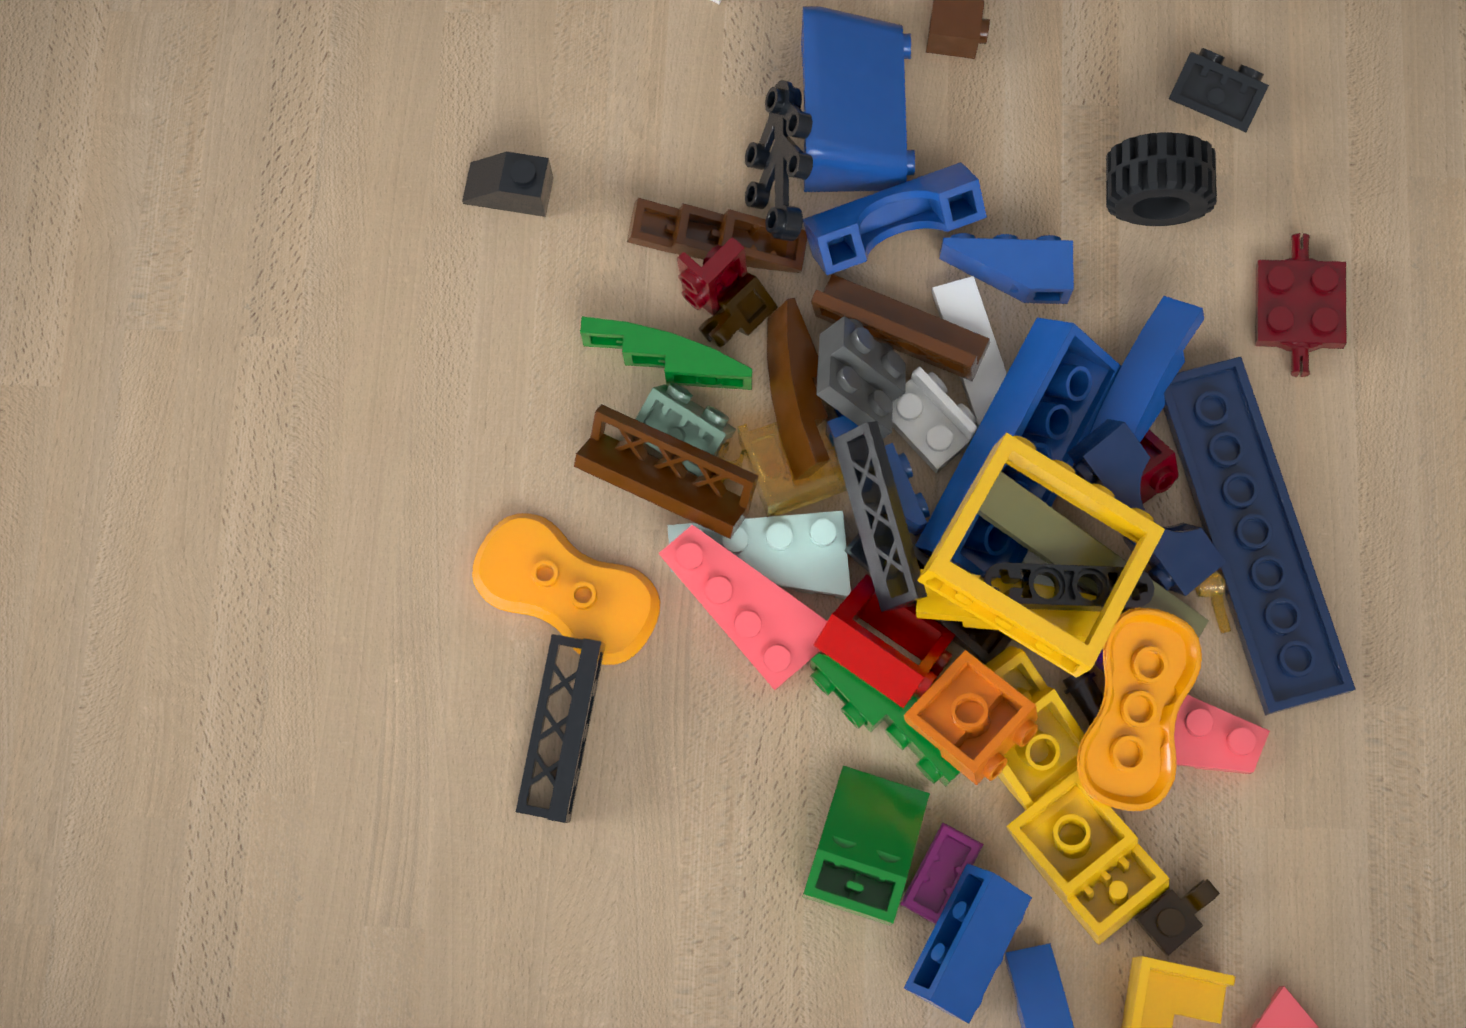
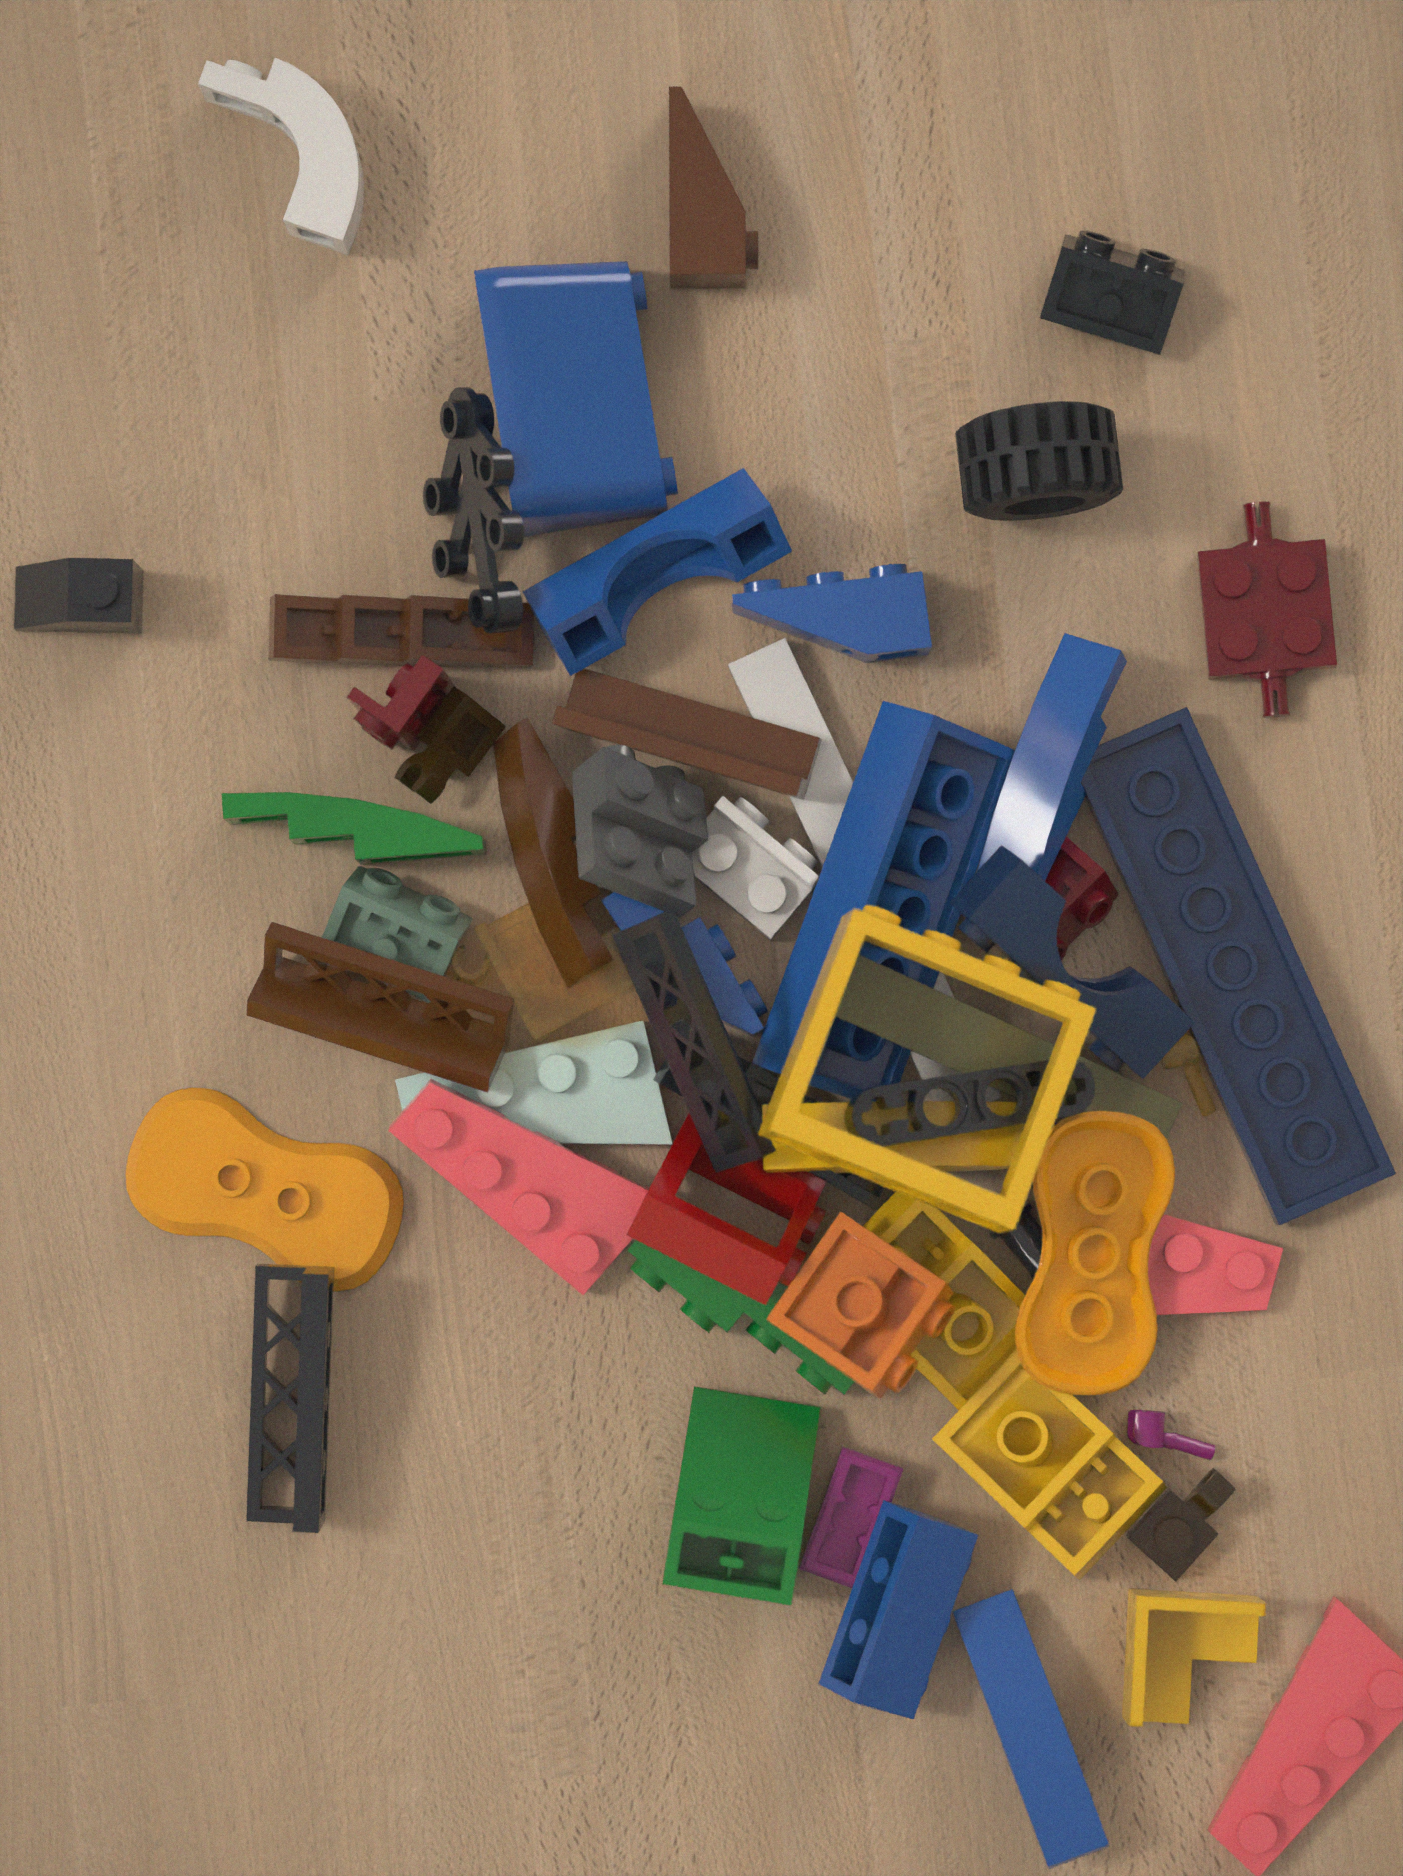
camera: 10 degrees left, 10 degrees up
(1159, 844) = (1147, 1430): none -> magenta hand

